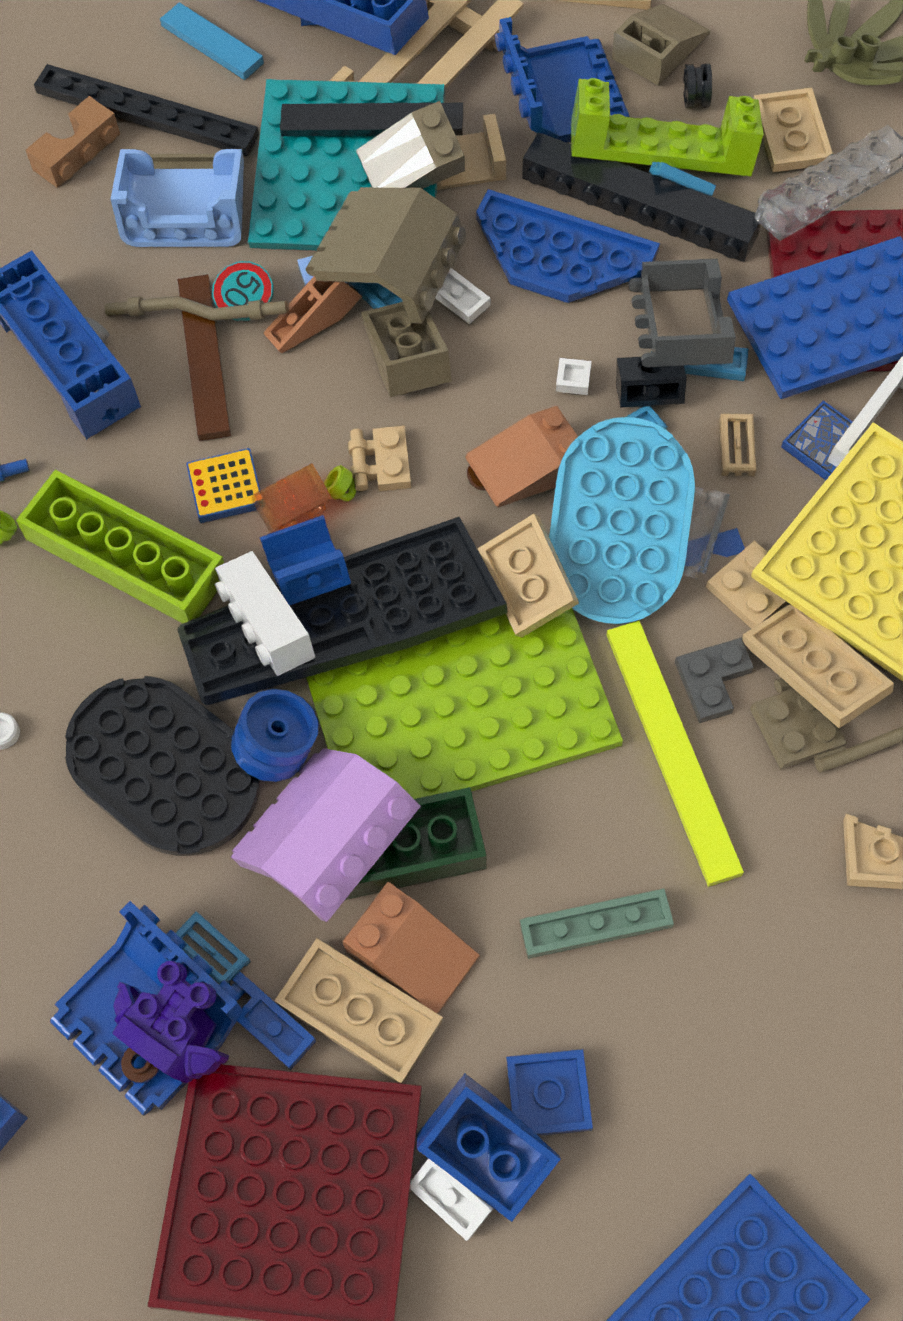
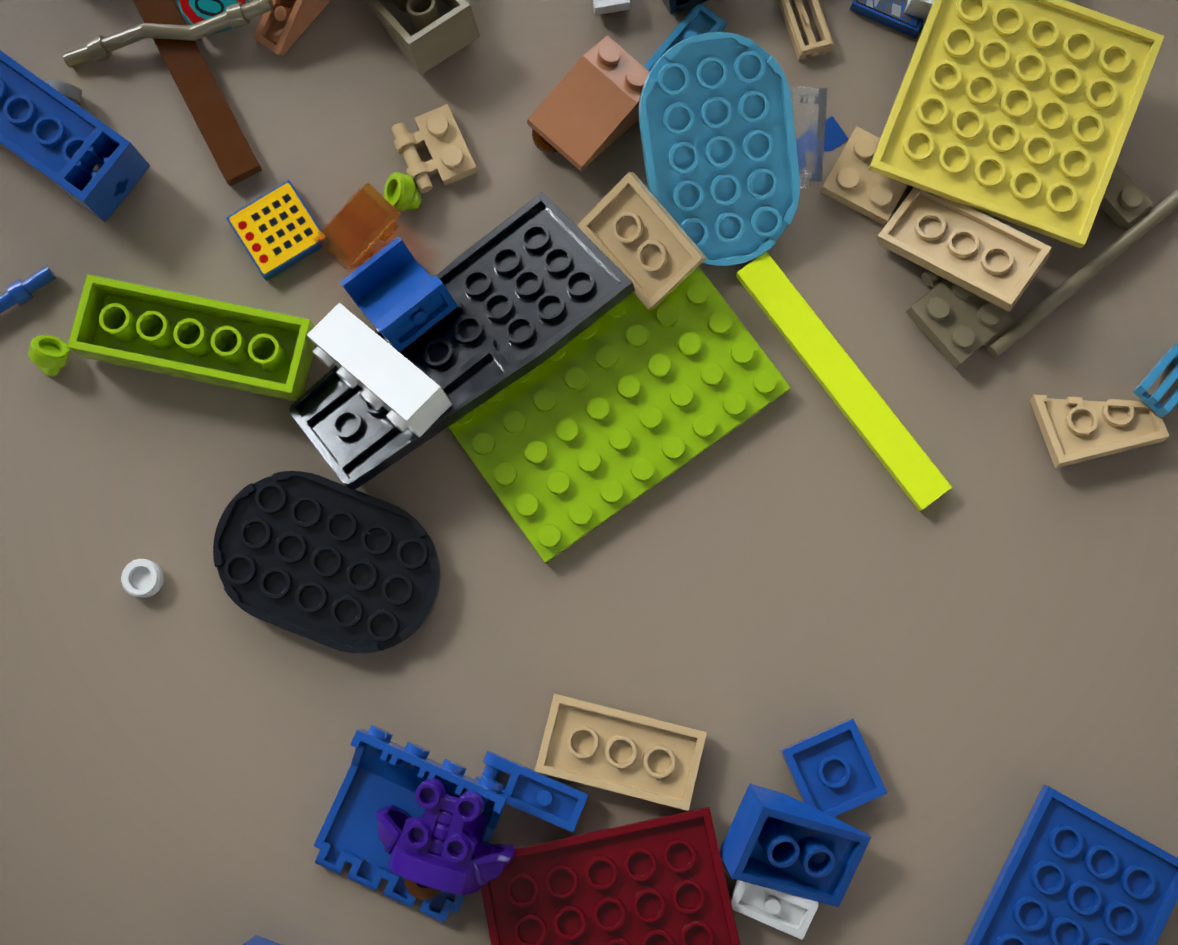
camera: 20 degrees left, 15 degrees up
(232, 970) = (418, 723): dark azure tile -> none
(274, 735) = (436, 497): blue wheel -> none
(327, 829) = (526, 584): lavender hinge -> none
(410, 948) = (652, 673): nougat slope -> none
(434, 845) = (612, 567): dark green brick -> none
(596, 923) = (824, 586): sand green plate -> none
(705, 673) = (848, 288): dark grey plate -> none

